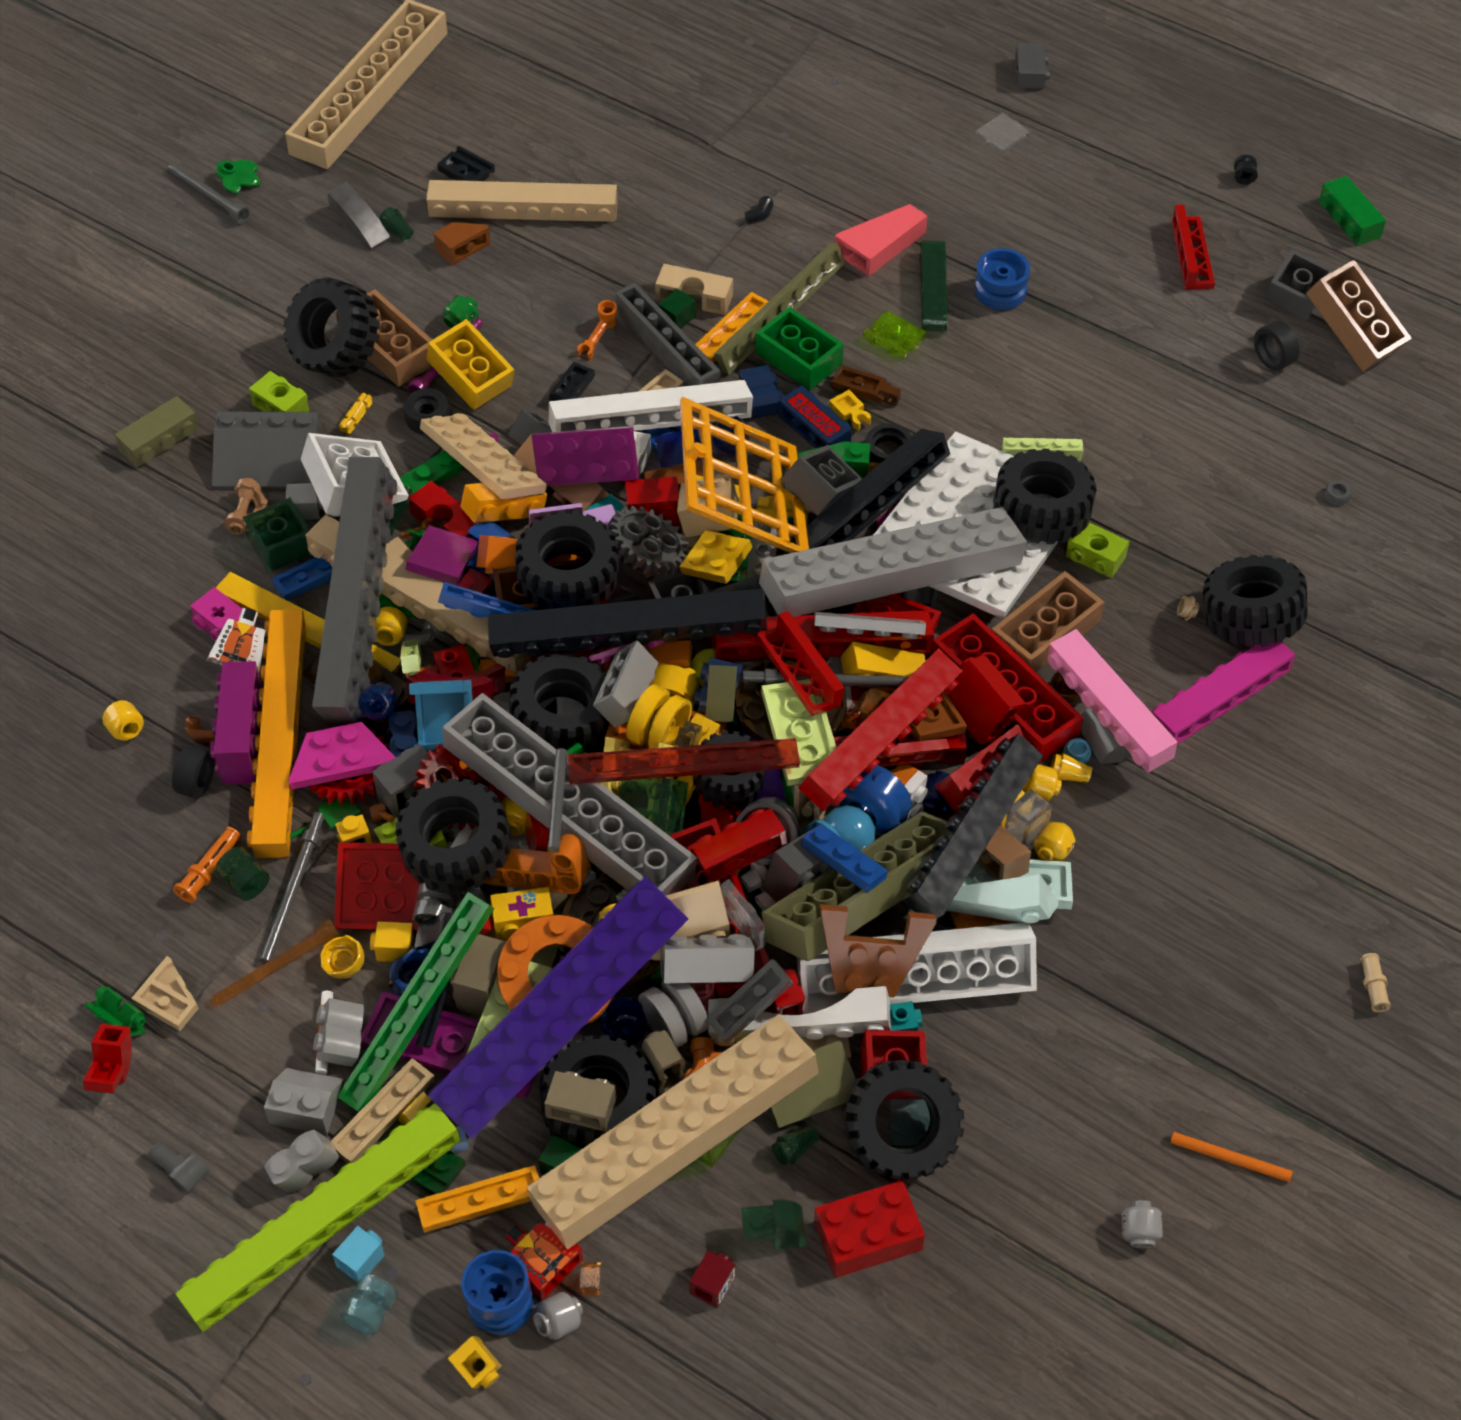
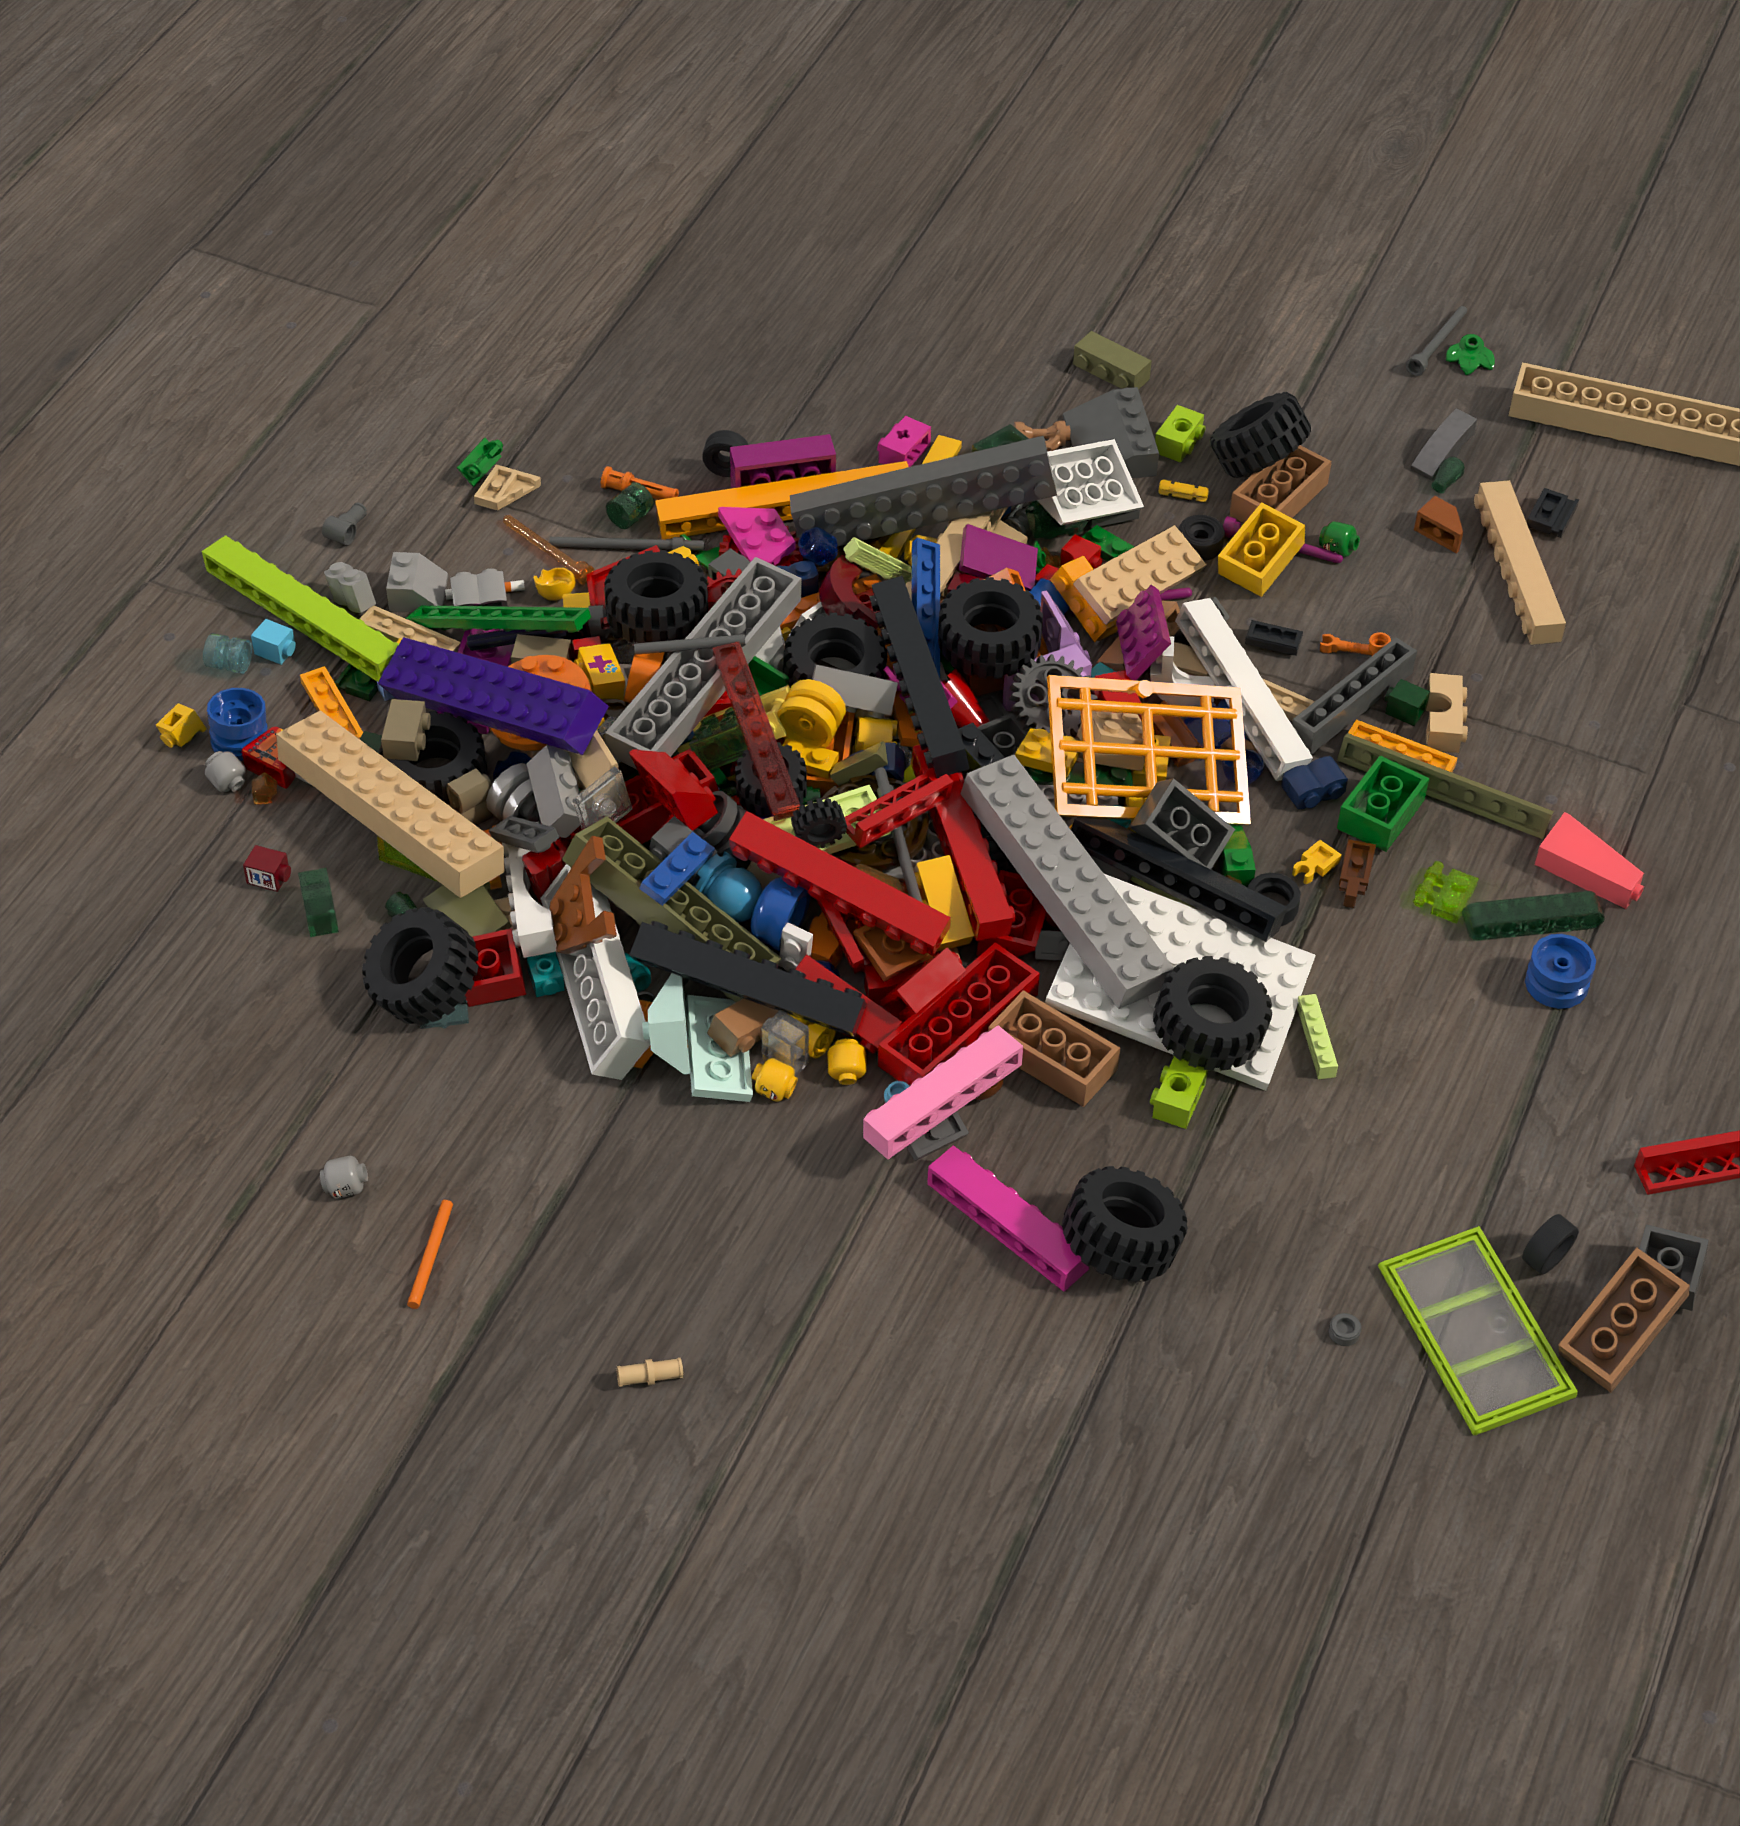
camera: 80 degrees right, 5 degrees down
(110, 1059) = (436, 465): red brick -> none
(123, 720) = (776, 405): yellow head -> none
(239, 641) = (867, 448): torso -> none
(436, 705) = (816, 580): dark azure panel -> none
(689, 734) = (798, 739): clear smoke piece -> none
(762, 211) = (1594, 758): black arm -> none
(813, 419) = (1287, 832): dark blue brick -> none
(823, 724) = (819, 822): none -> black tyre
(869, 1228) = (322, 969): red brick -> none
(881, 626) = (968, 858): light grey plate -> none
(1070, 768) = (872, 1087): yellow cone -> none
(1342, 412) = (1477, 1331): none -> clear door

